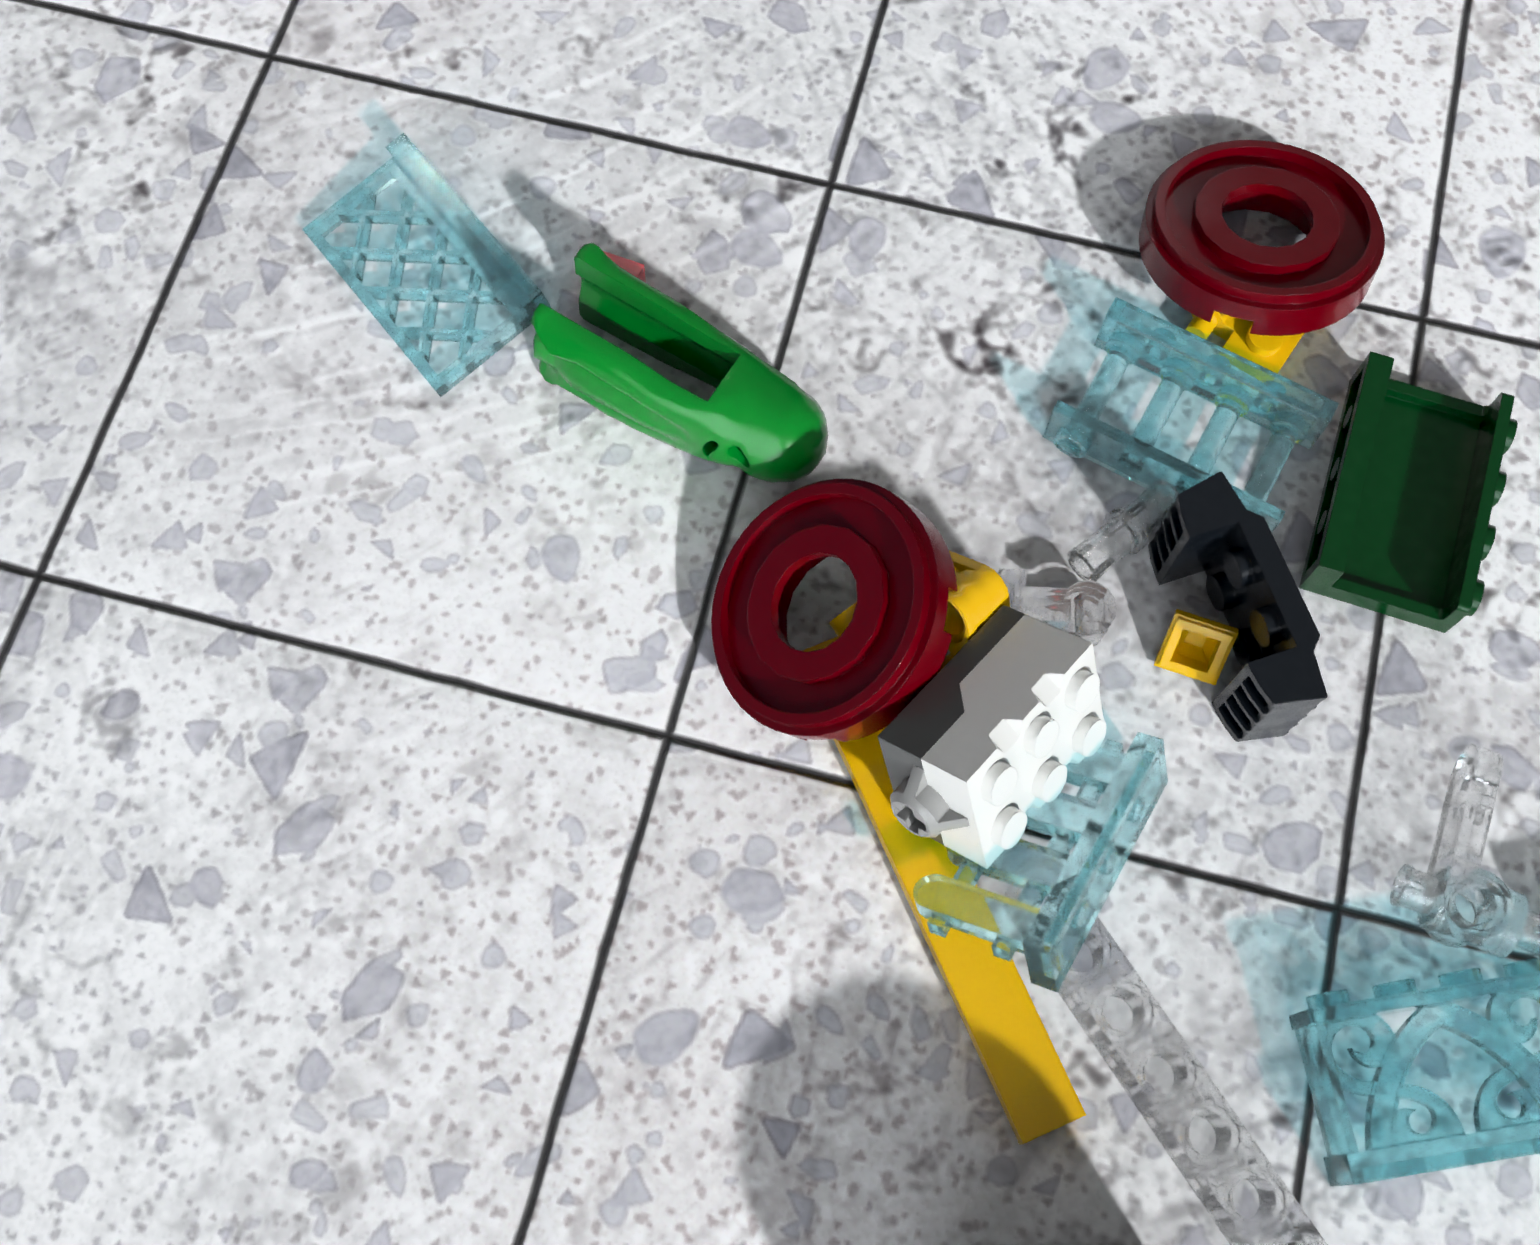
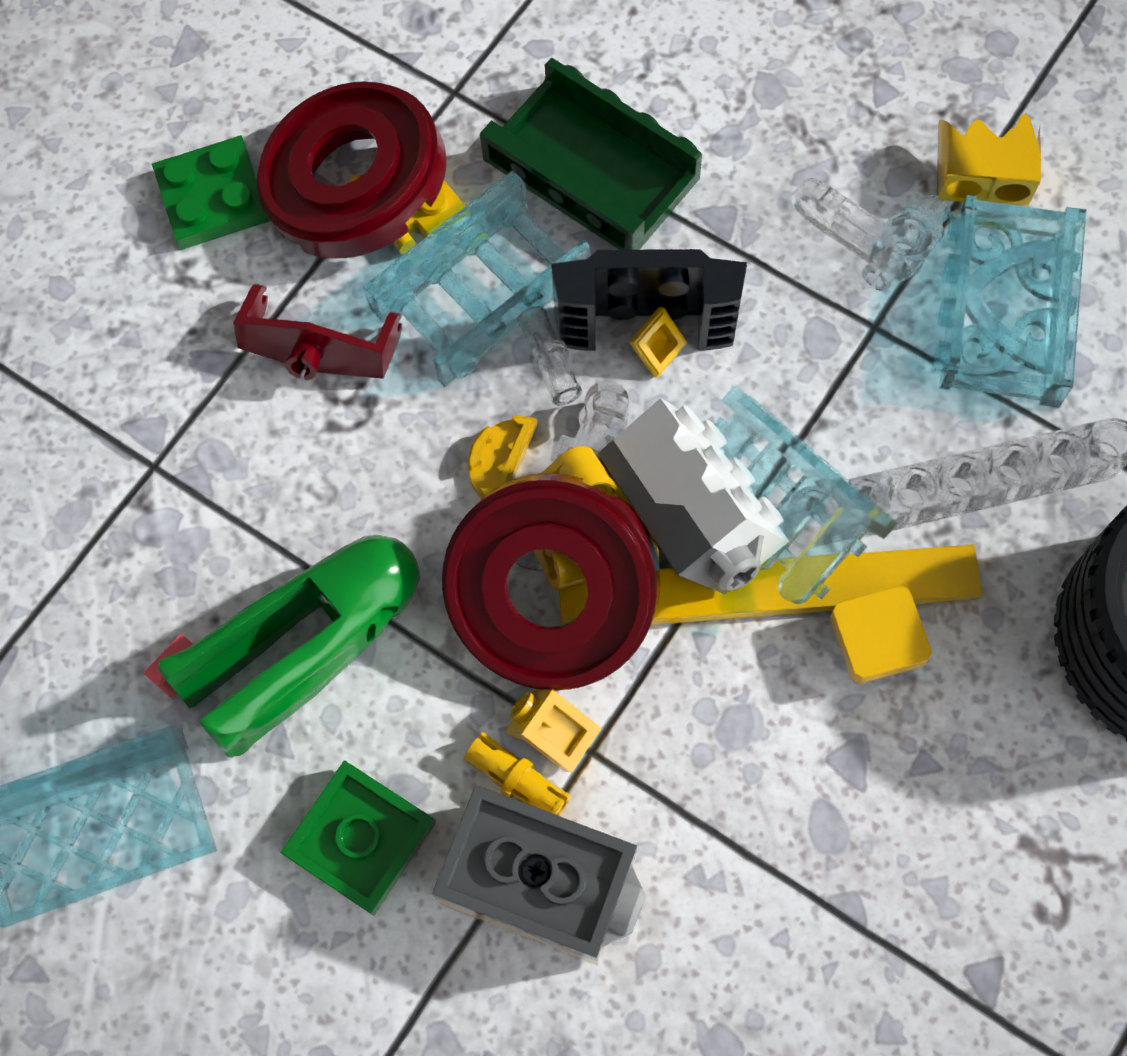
camera: 65 degrees left, 0 degrees up
(490, 523) = (358, 837): none -> green plate
(490, 713) = (541, 876): none -> dark grey piece
(607, 663) = (515, 775): none -> yellow pin
(674, 680) = (552, 727): none -> yellow bracket
(917, 1023) = (880, 634): none -> yellow piece
(984, 519) = (499, 452): none -> yellow tile
(1022, 278) = (313, 346): none -> dark red piece
(1169, 112) = (210, 192): none -> green plate

